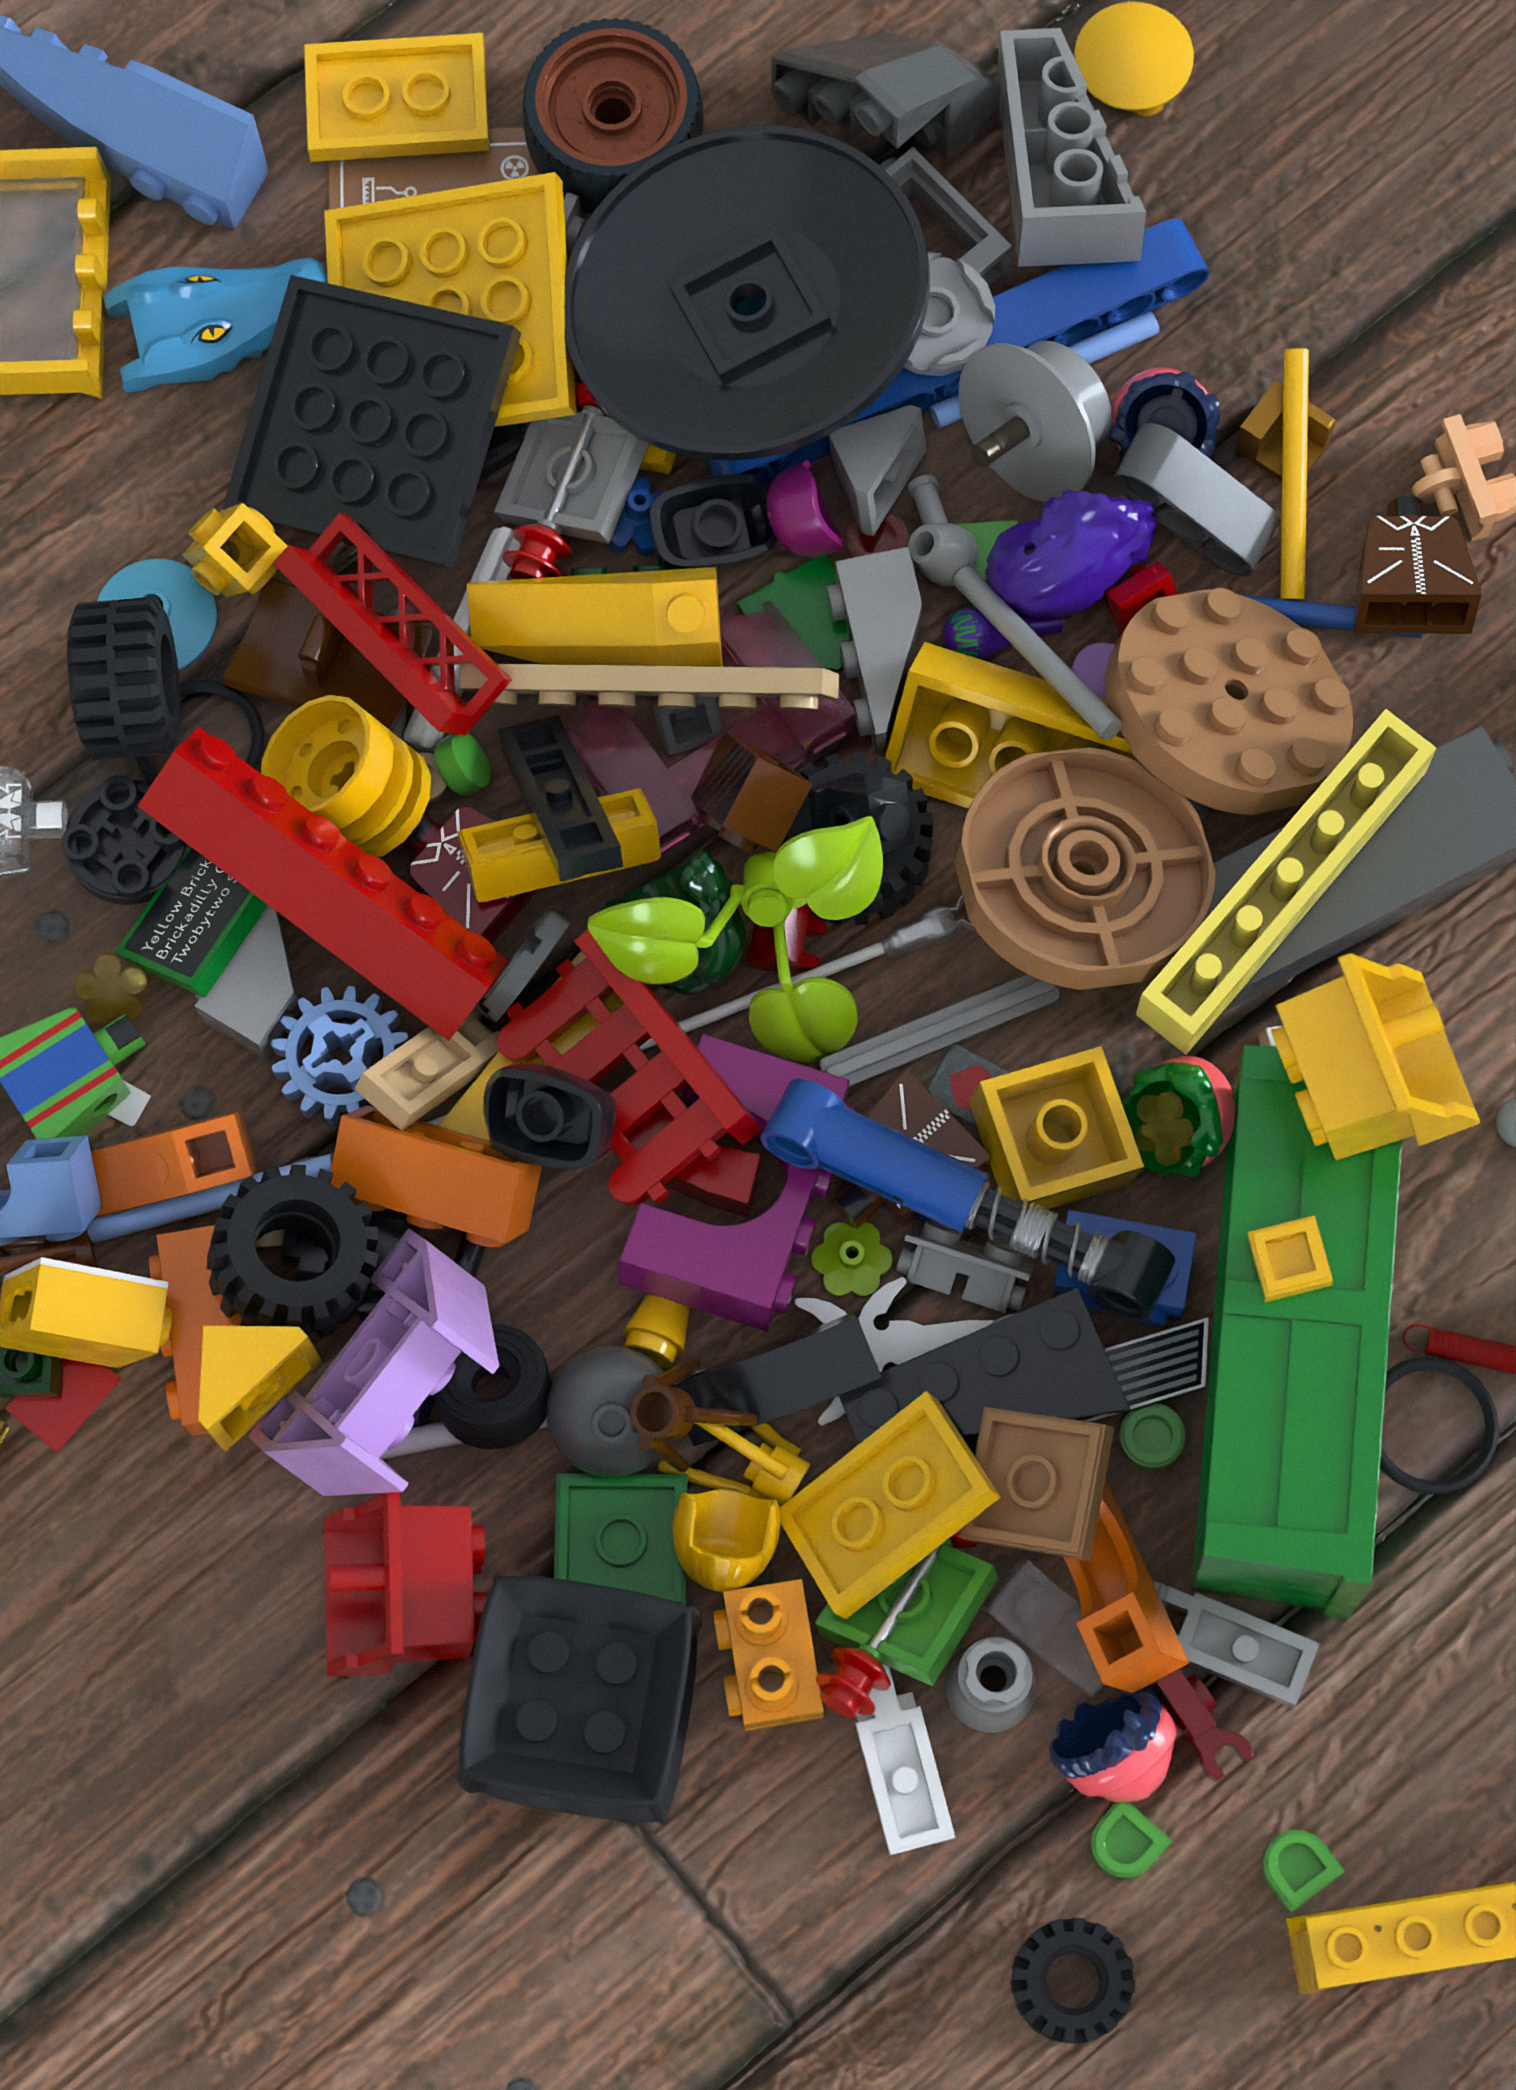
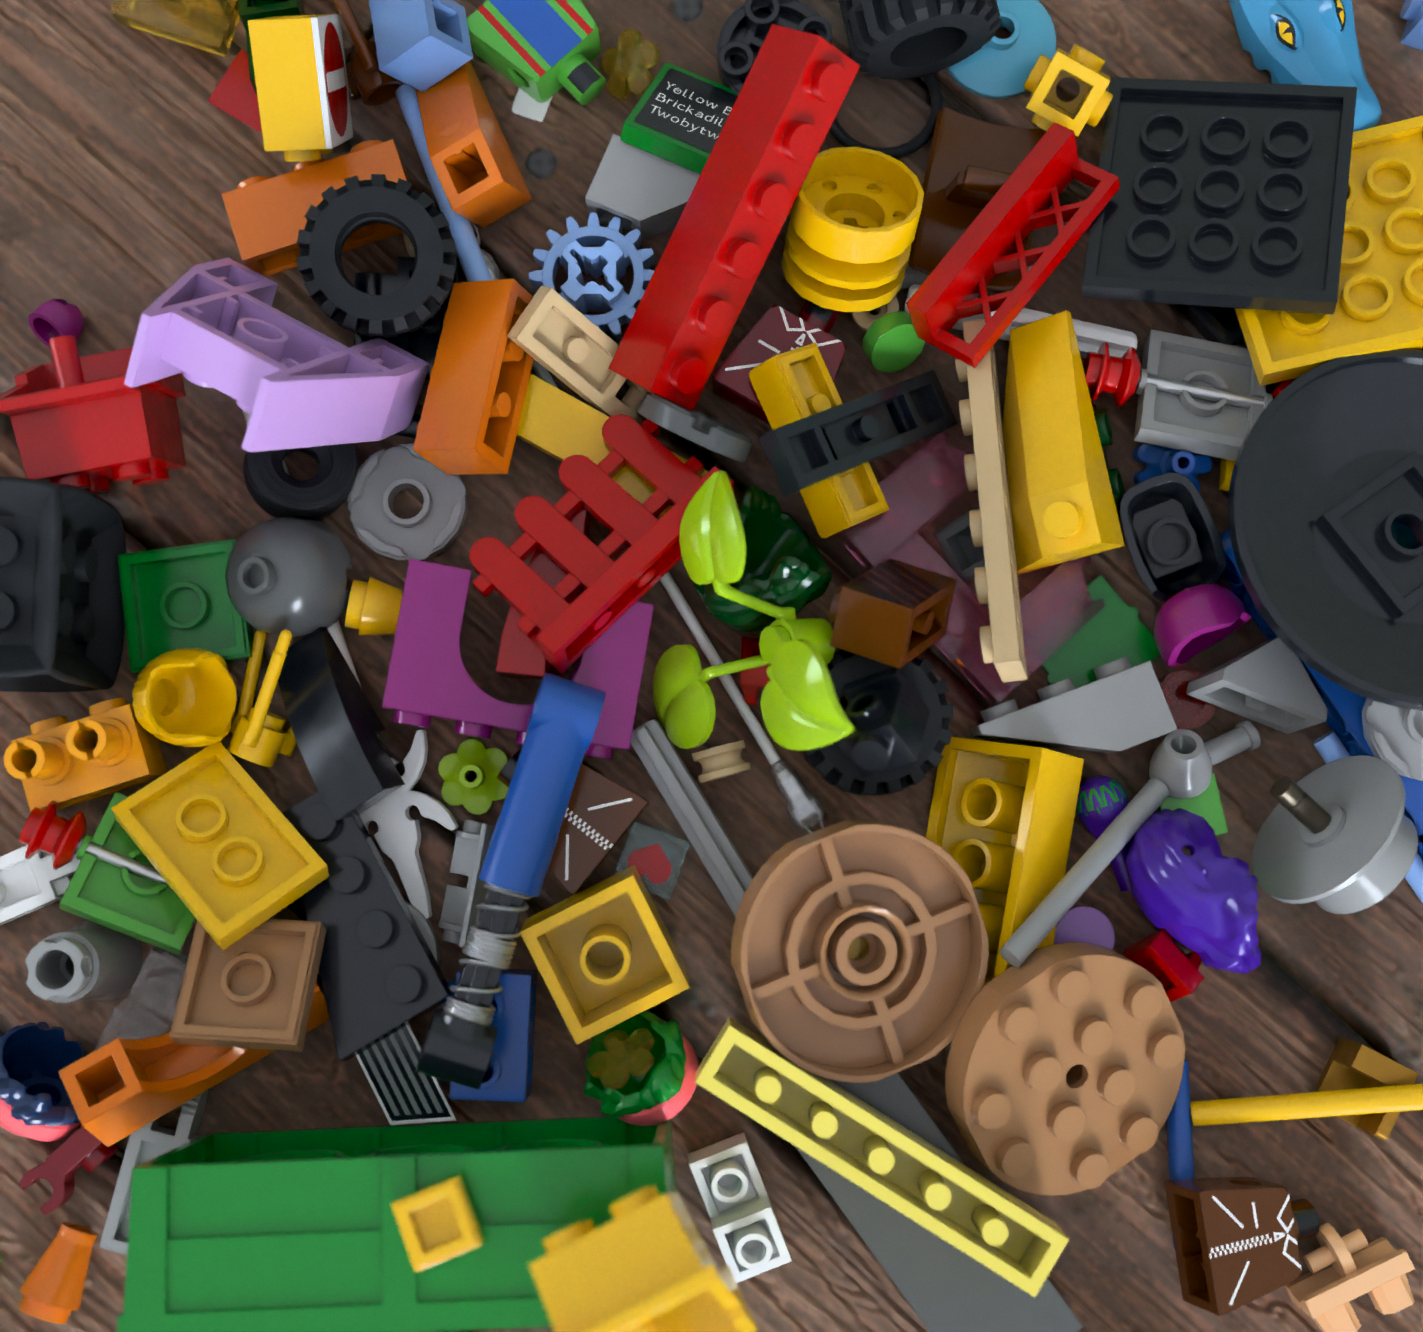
camera: 80 degrees right, 10 degrees up
(248, 1375) = (246, 224): yellow slope -> none
(297, 1647) = (56, 319): none -> magenta hinge
(548, 1116) = (533, 468): black piece -> none
(551, 1251) = (414, 538): none -> light grey tile
(670, 1413) = (266, 628): reddish brown plant -> none
(874, 998) = (721, 761): none -> tan bush
(1151, 1437) = (338, 1083): bright green tile -> none
(1166, 399) = (1353, 966): dark blue hair -> none
(1196, 499) = (1277, 1008): beam -> none
(1320, 1755) = (59, 1276): none -> orange cone

